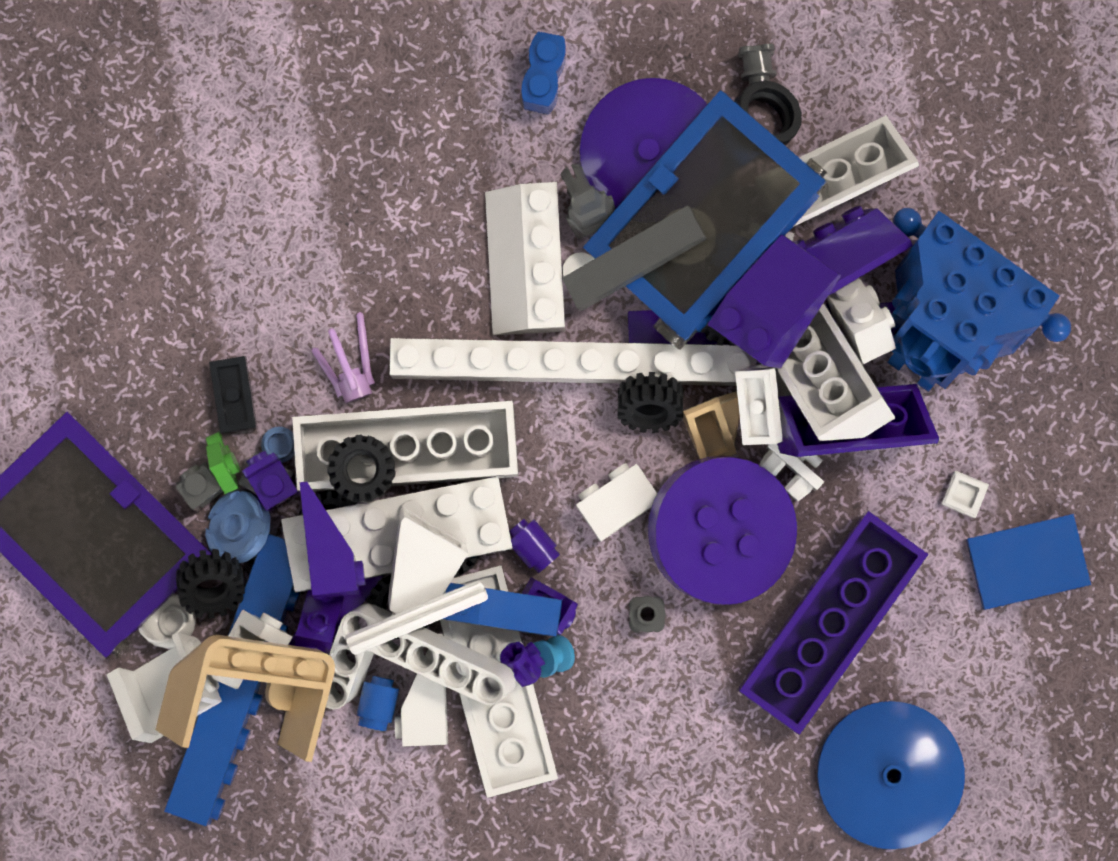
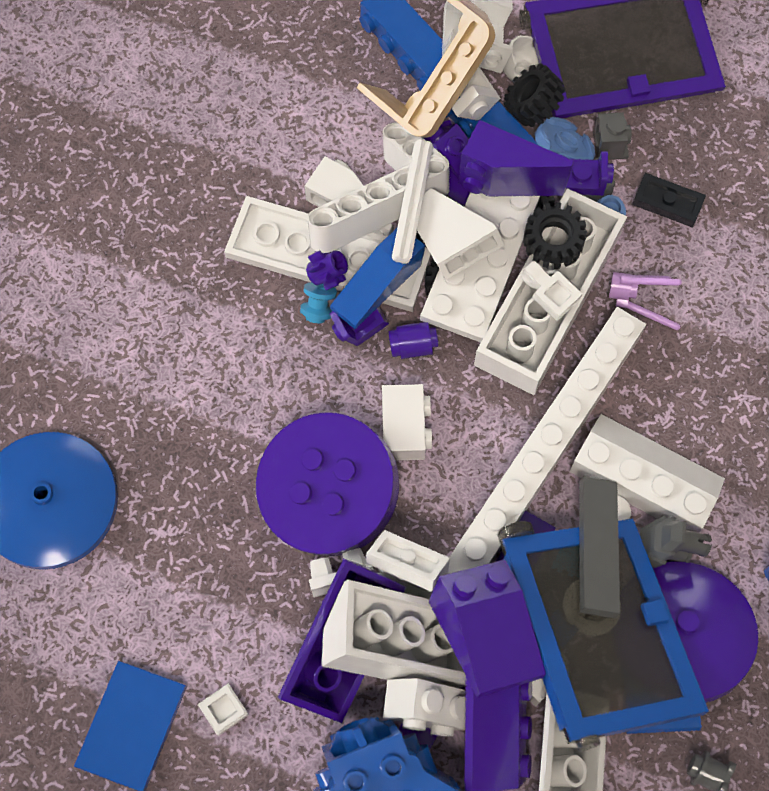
camera: 120 degrees right, 15 degrees down
(222, 463) = (623, 155): bright green plate -> none
(377, 703) = (367, 162): blue brick -> none
(421, 434) = (553, 293): none -> white plate
(637, 623) = (301, 400): dark grey brick -> none
(650, 402) = (468, 491): black tyre -> none
(714, 425) = (418, 525): tan slope -> none
(781, 100) = (669, 773): black tyre -> none
(832, 622) = (194, 526): dark purple brick -> none

